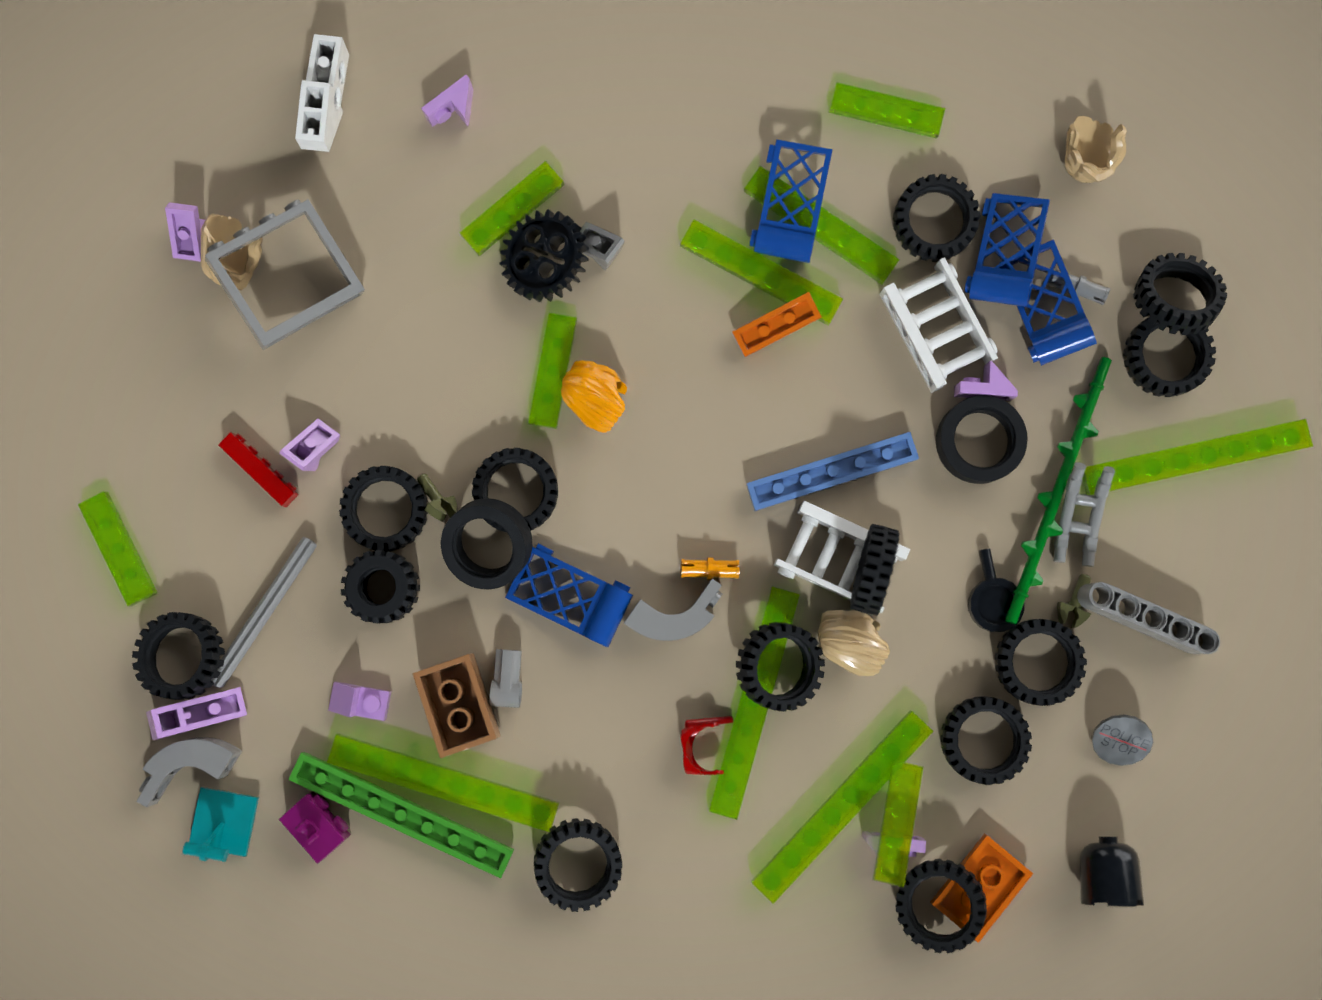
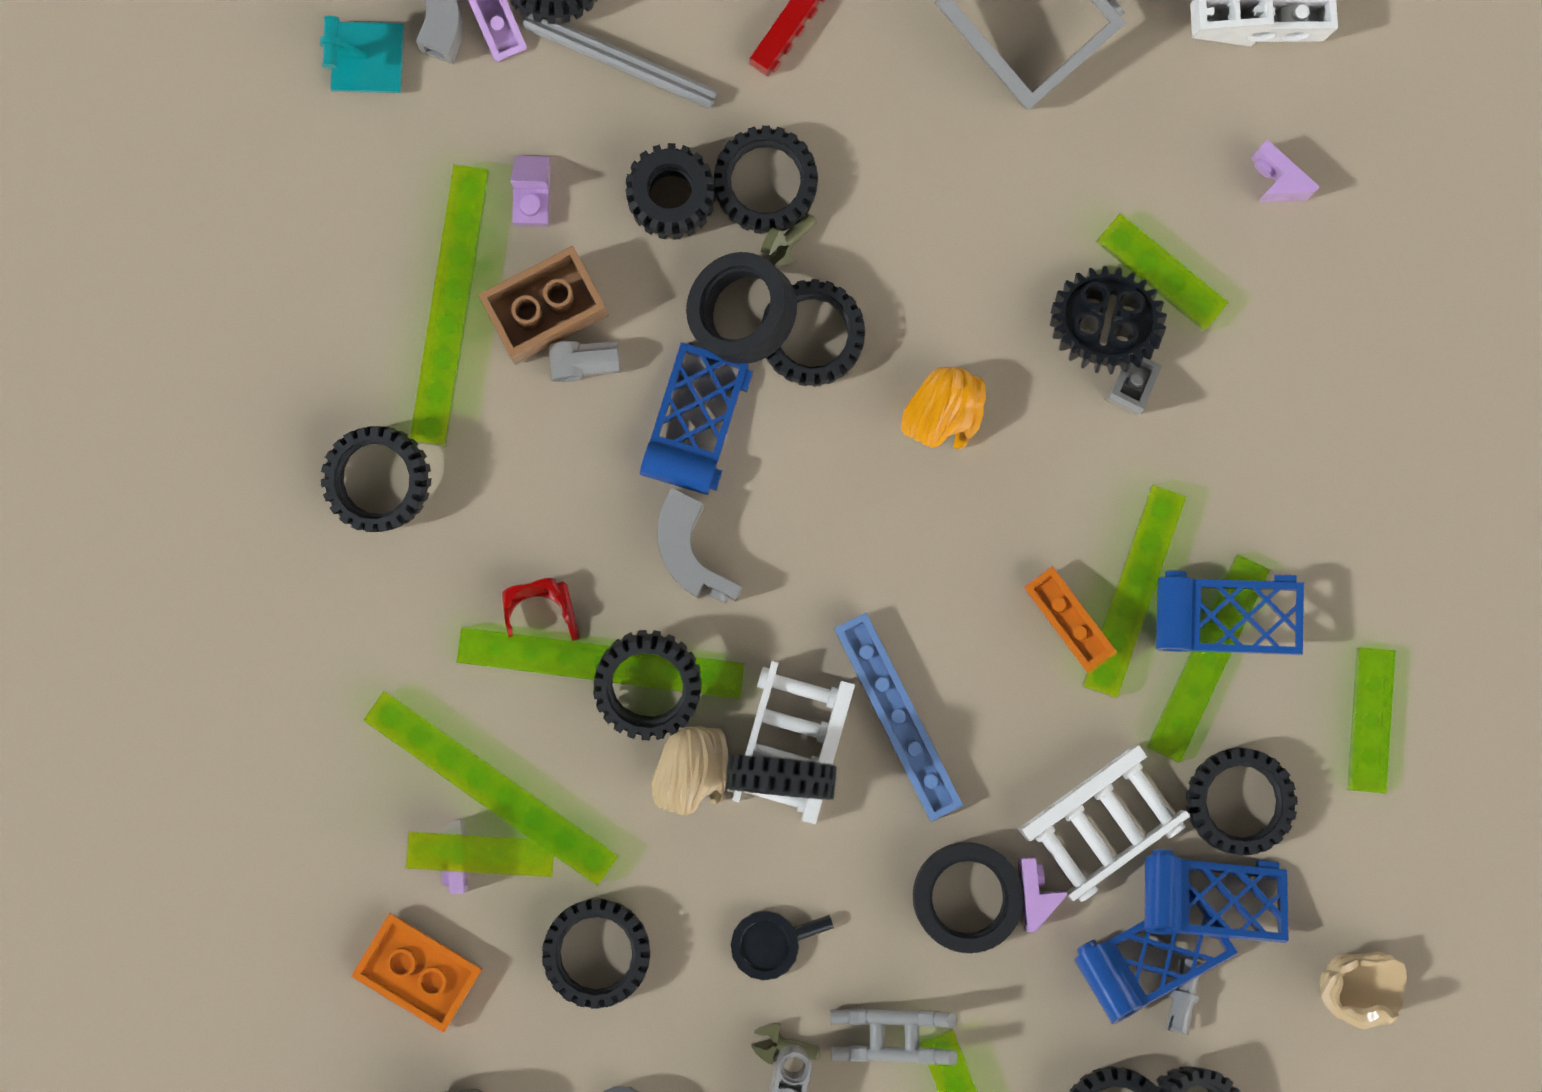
camera: 80 degrees right, 0 degrees up
(310, 445) = (827, 79): lavender slope -> none
(315, 826) = (377, 164): magenta brick -> none
(401, 814) = (405, 263): bright green plate -> none
(551, 371) = (970, 353): clear neon green plate -> none
(710, 568) = (754, 583): light orange pin -> none
(917, 931) = (357, 896): black tyre -> none
(1052, 499) = (906, 996): green plant -> none
(1074, 657) = (666, 1034): black tyre -> none

